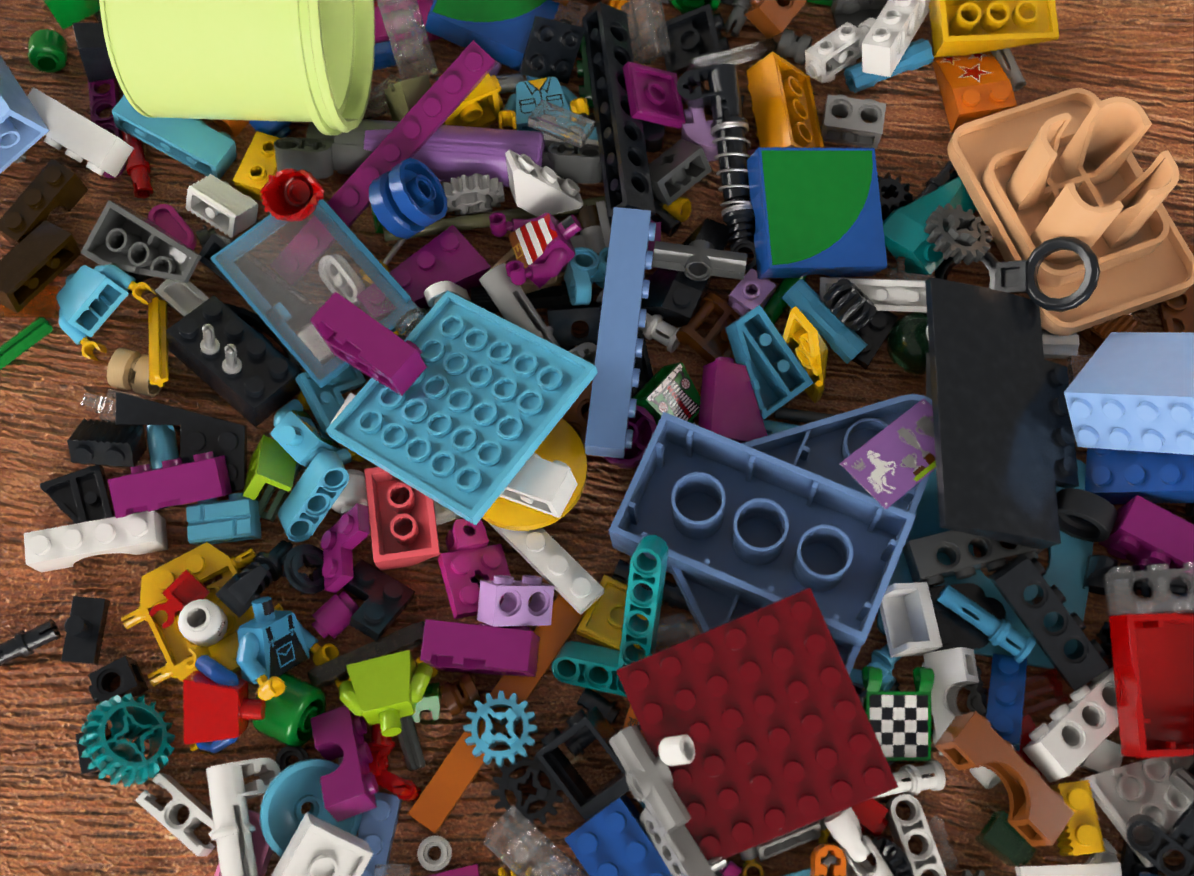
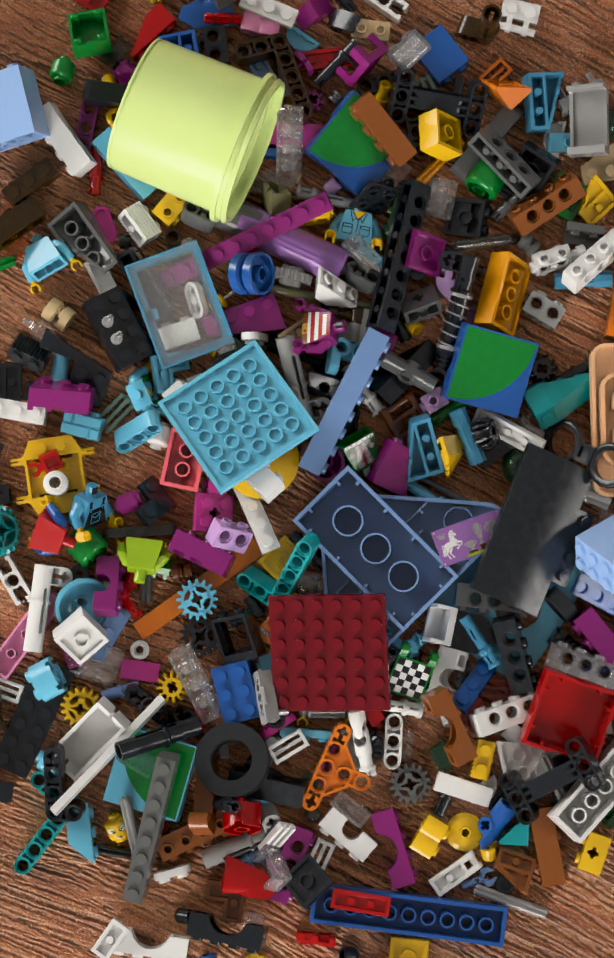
camera: 20 degrees right, 15 degrees up
(158, 342) = (77, 302): yellow axle -> none
(253, 580) = (84, 472): black piece -> none
(269, 465) = (117, 405): lime panel -> none
(291, 194) = (184, 250): red hair -> none
(310, 557) = (124, 477): black gear -> none
(338, 547) = (142, 464): magenta plate -> none
(368, 344) = (198, 363): magenta wedge -> none
(649, 779) = (264, 658): light grey piece -> none
(677, 750) = (283, 649): white piece -> none
(958, 234) = (565, 406): dark grey gear -> none

